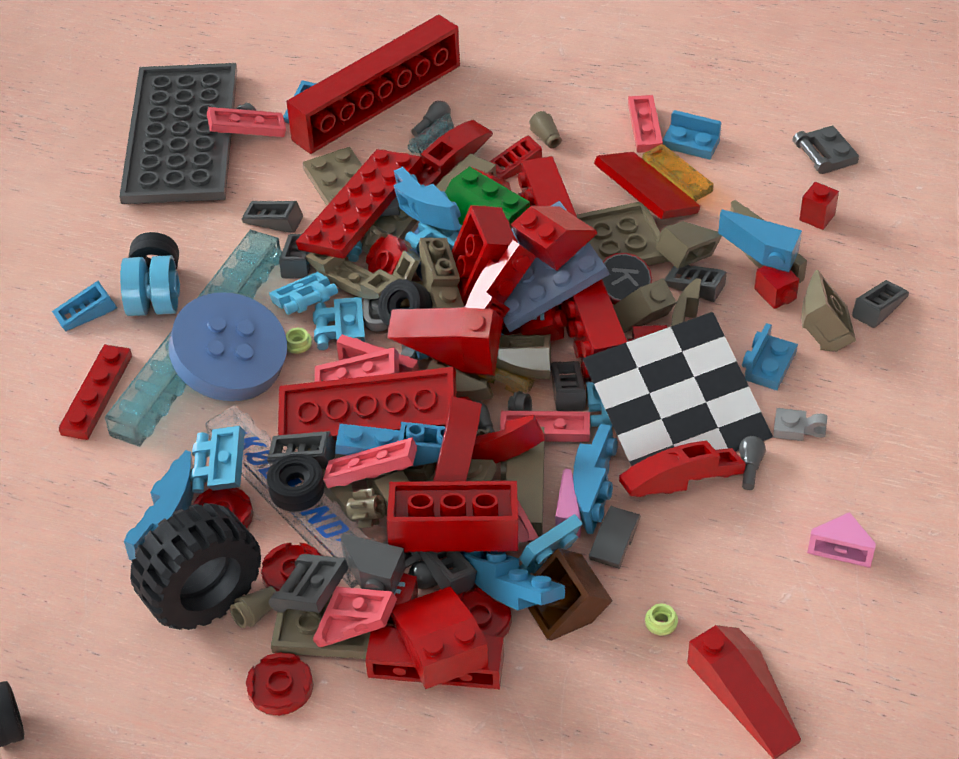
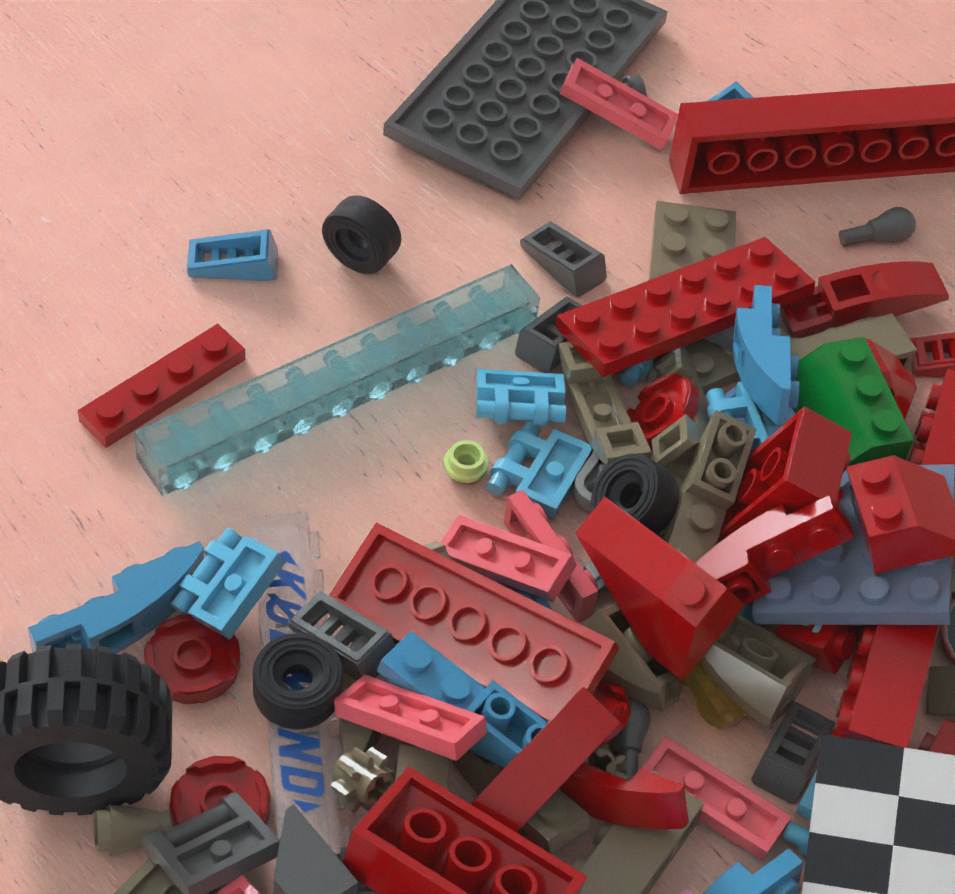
camera: 25 degrees right, 5 degrees up
(158, 285) = (324, 273): medium azure wheel -> none
(227, 346) = (360, 420): medium blue brick -> none
(430, 134) = (862, 253): clear light blue hinge -> none
(520, 402) = (703, 740): dark grey plate -> none

